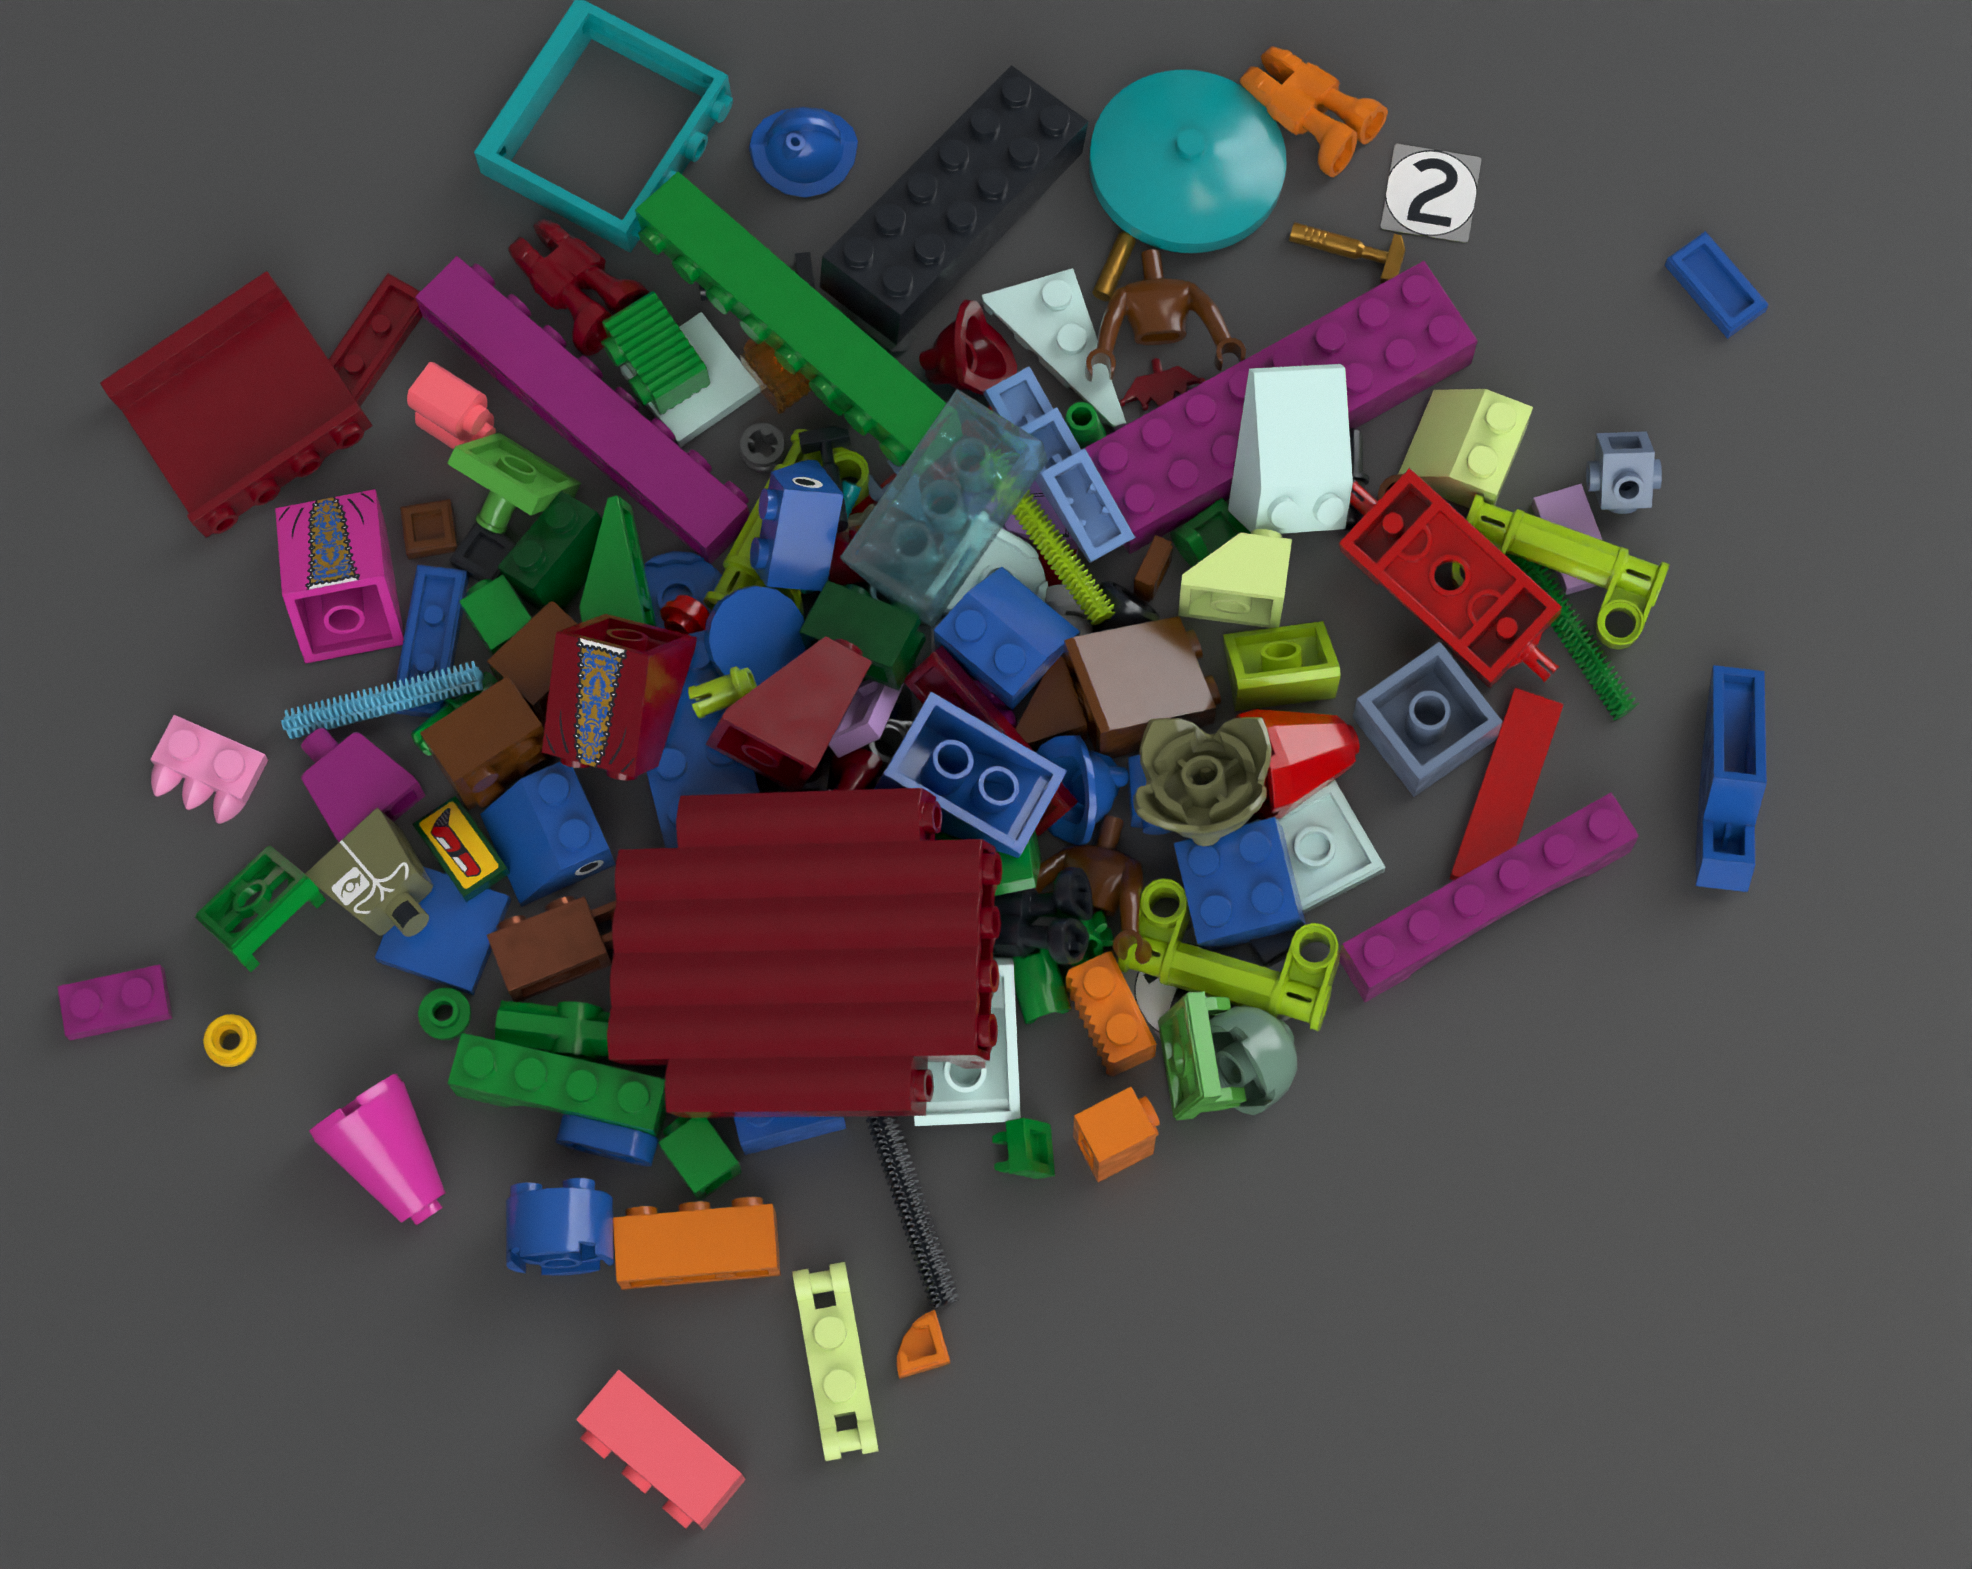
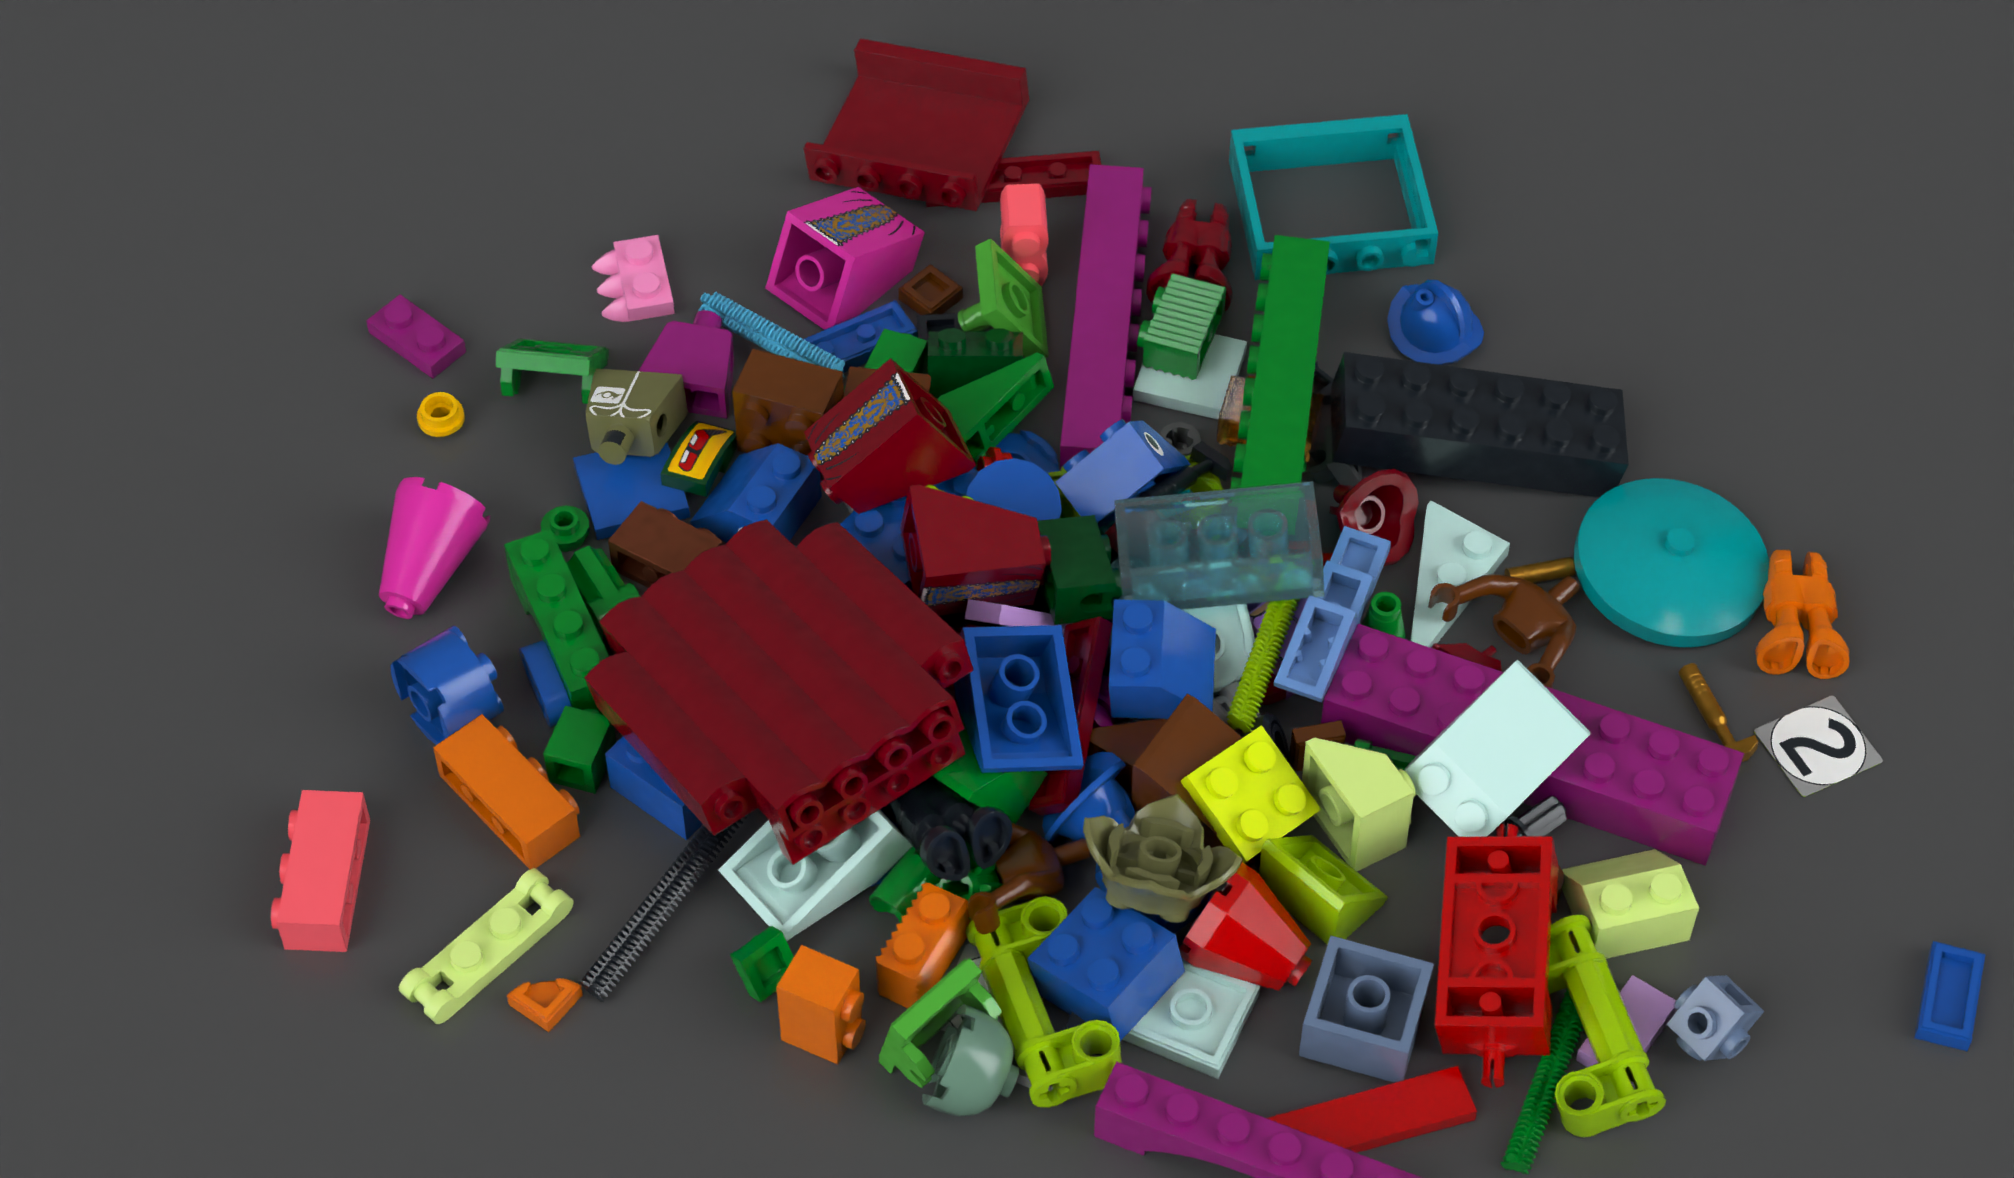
camera: 50 degrees right, 20 degrees down
(1181, 660) = (1250, 794): none -> neon yellow plate

